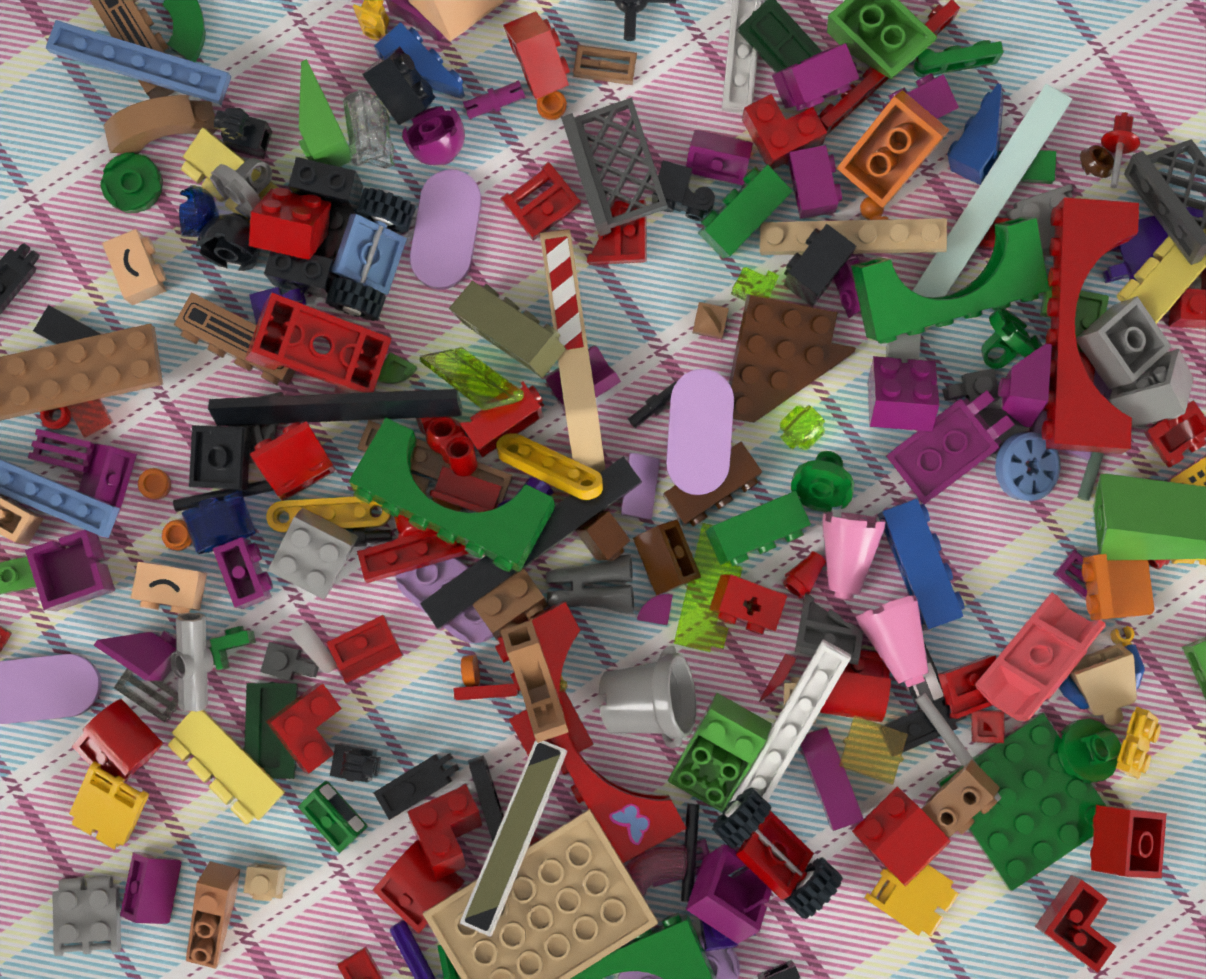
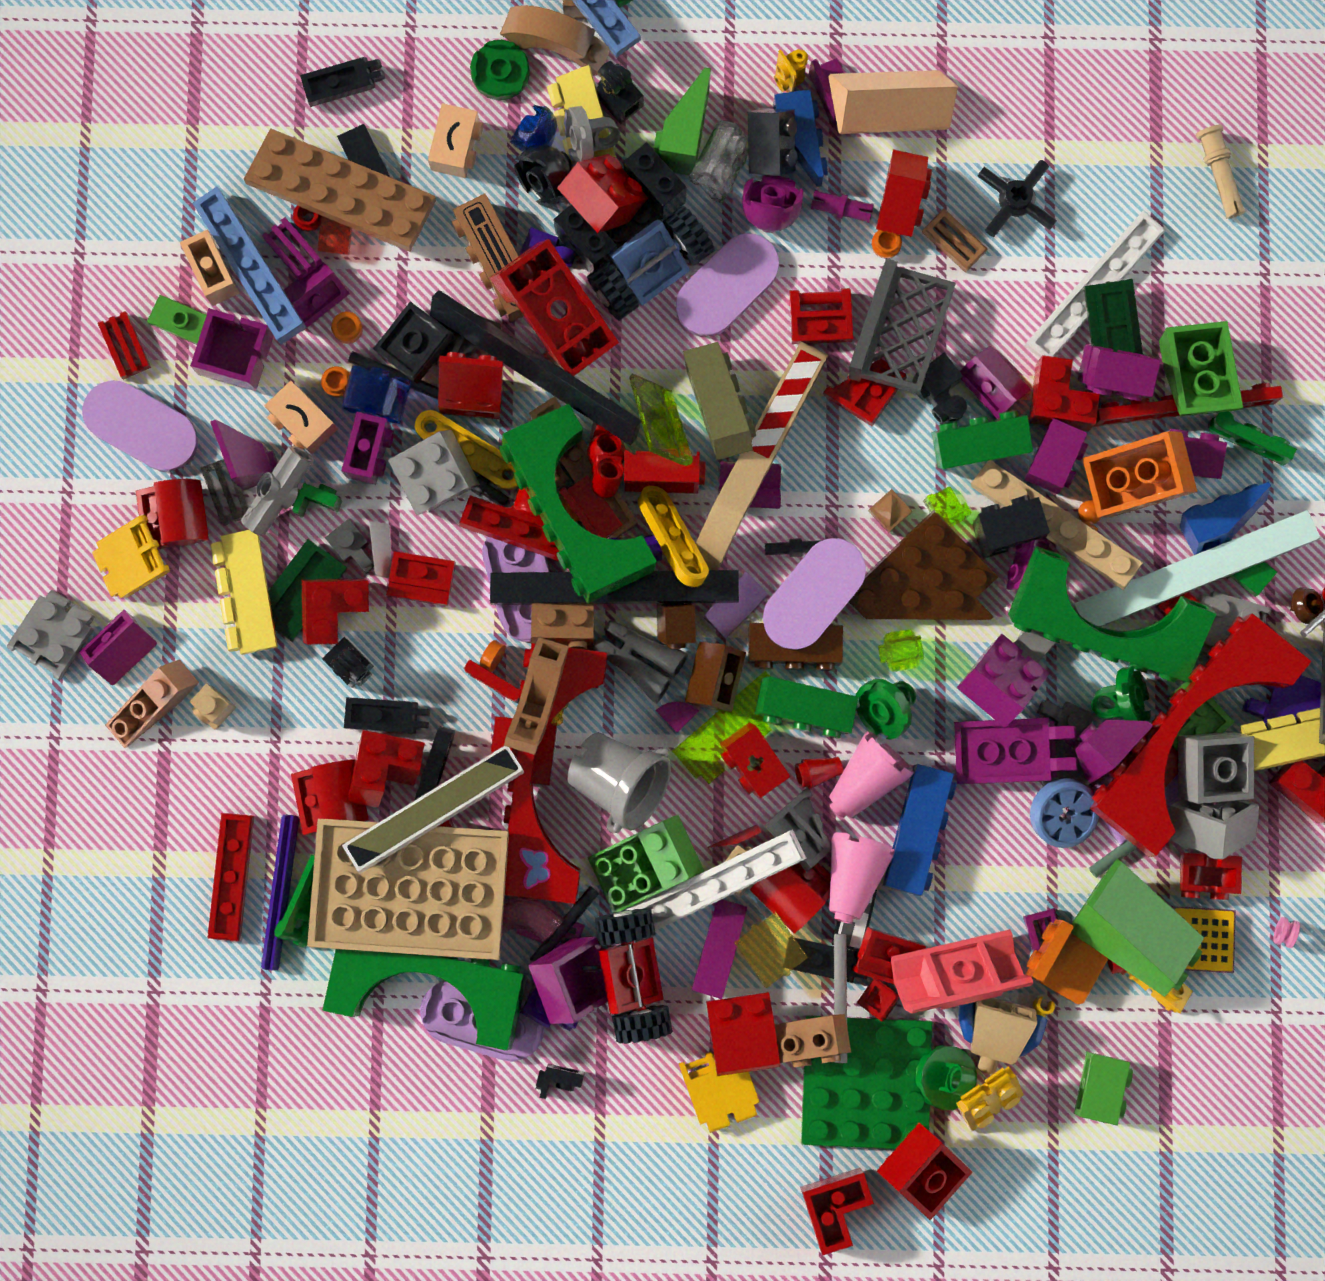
camera: 30 degrees right, 0 degrees up
(332, 816) = (300, 694): green slope -> none
(396, 370) = (605, 371): bright green tile -> none

